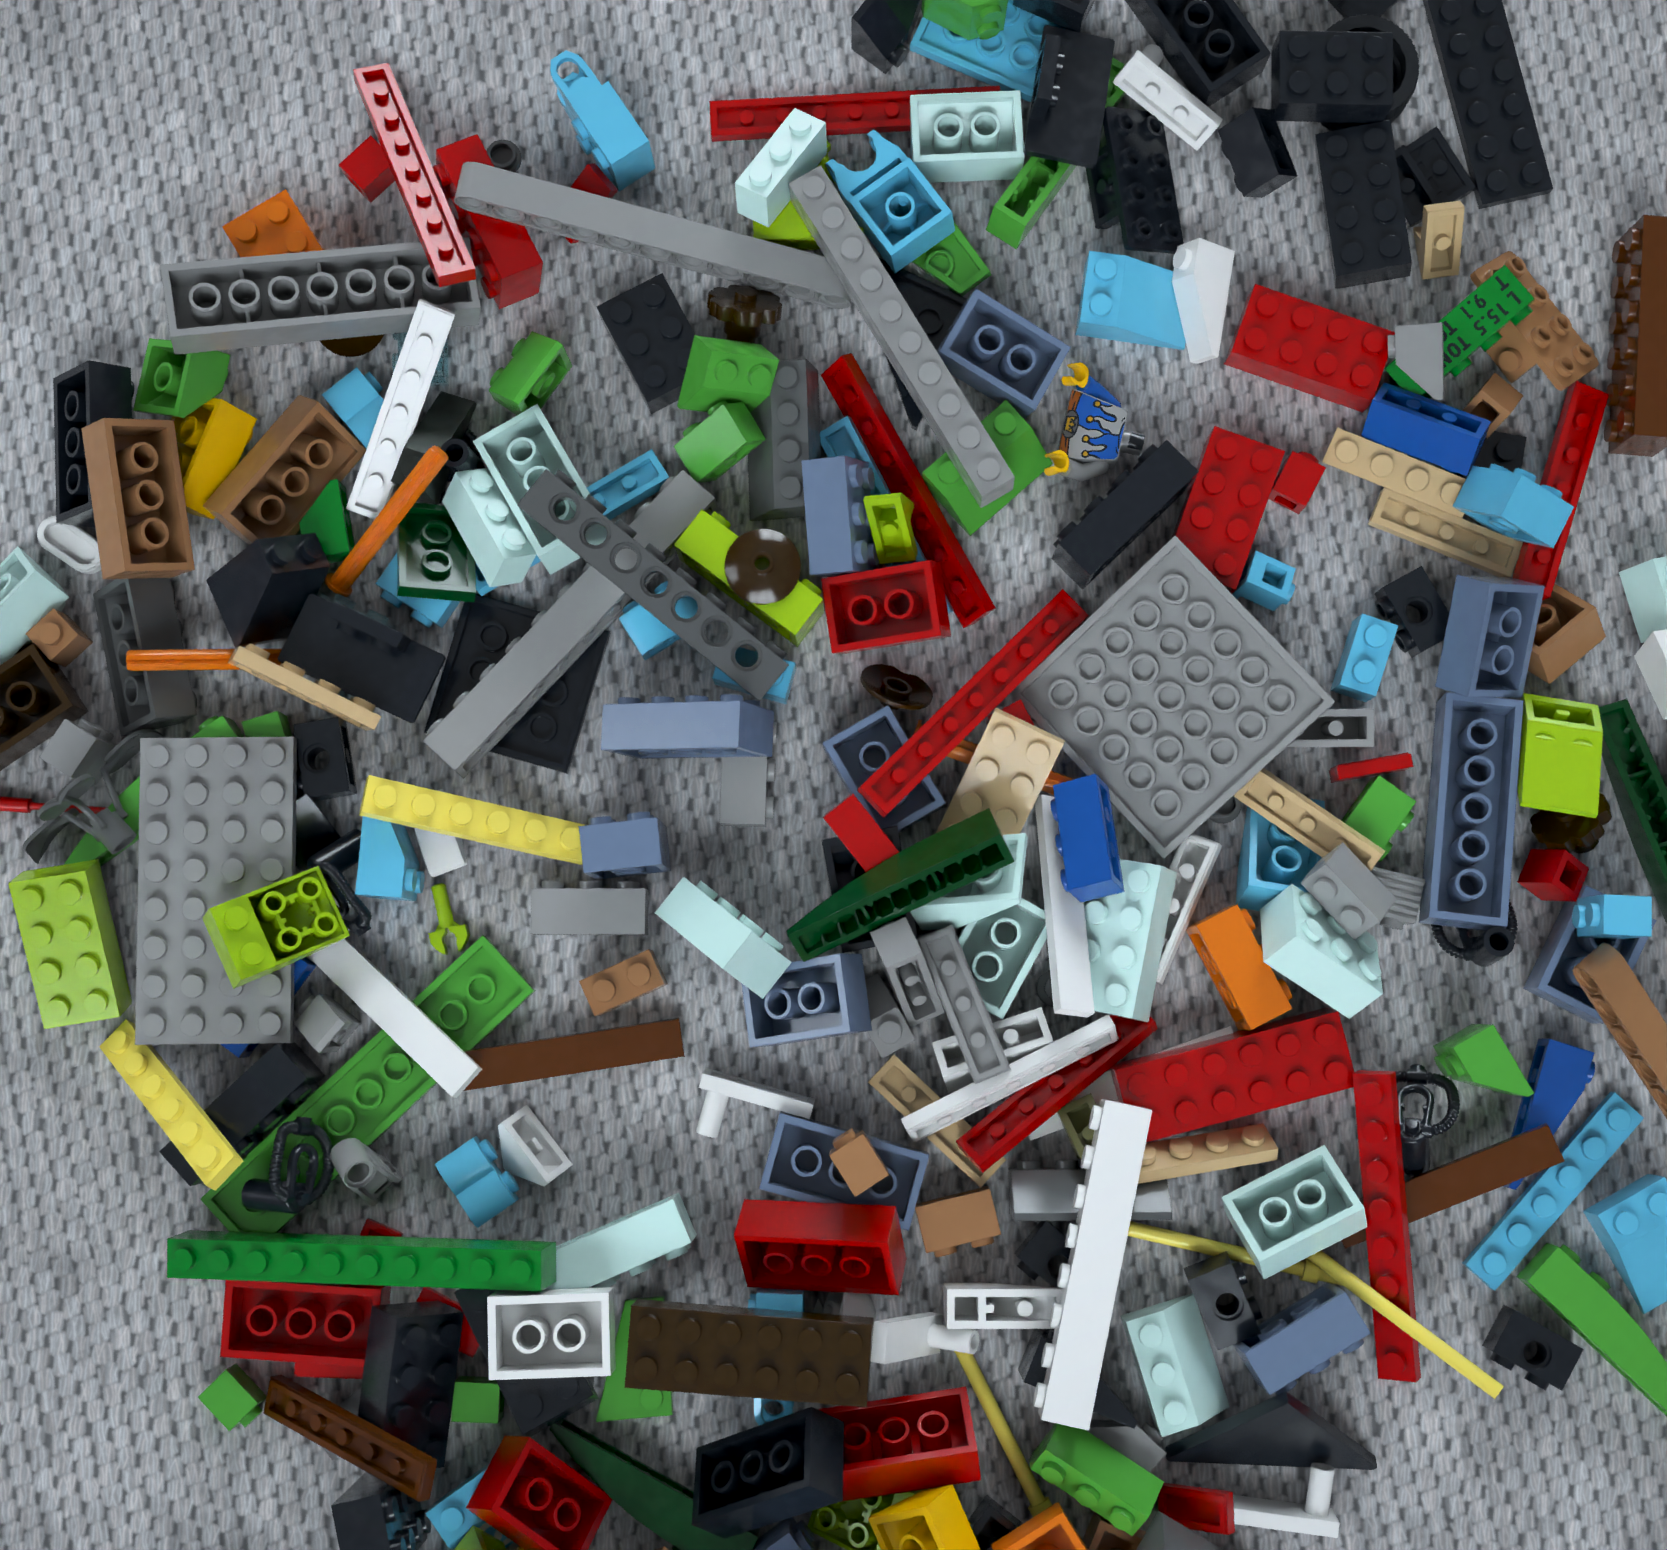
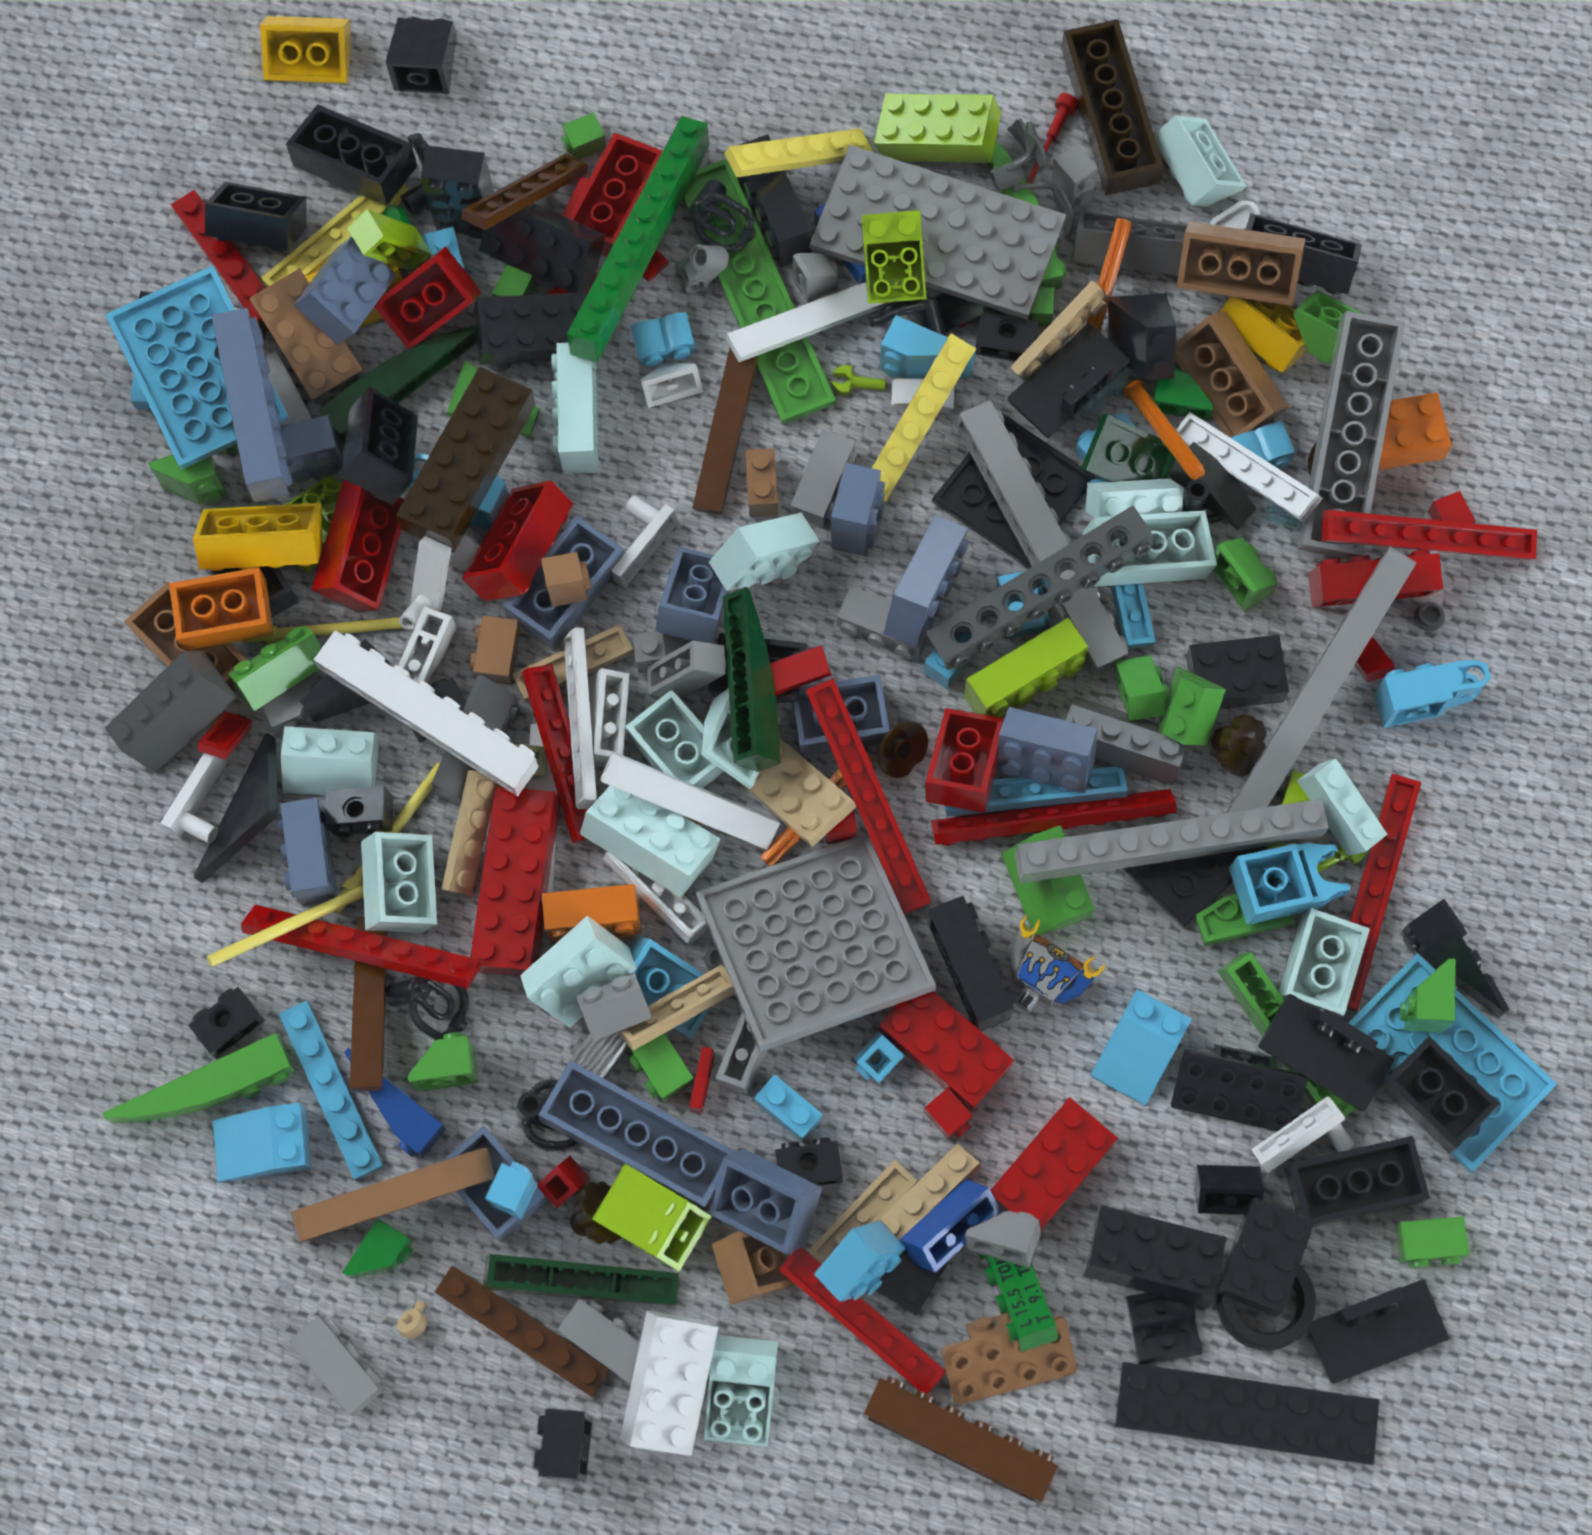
camera: 110 degrees right, 10 degrees down
(59, 638) = (1164, 190): medium nougat brick -> none
(551, 1333) = (535, 334): white brick -> none
(765, 585) = (1022, 686): dark brown dish -> none
(891, 527) = (1025, 783): lime slope -> none
(963, 1004) = (647, 700): light grey tile -> none
(1001, 353) = (1133, 920): sand blue brick -> none
(1087, 838) = (731, 835): blue brick -> none
(1201, 293) = (1132, 1101): white slope -> none
(1440, 239) = (1103, 1310): tan slope -> none
(1494, 402) = (951, 1291): medium nougat brick -> none

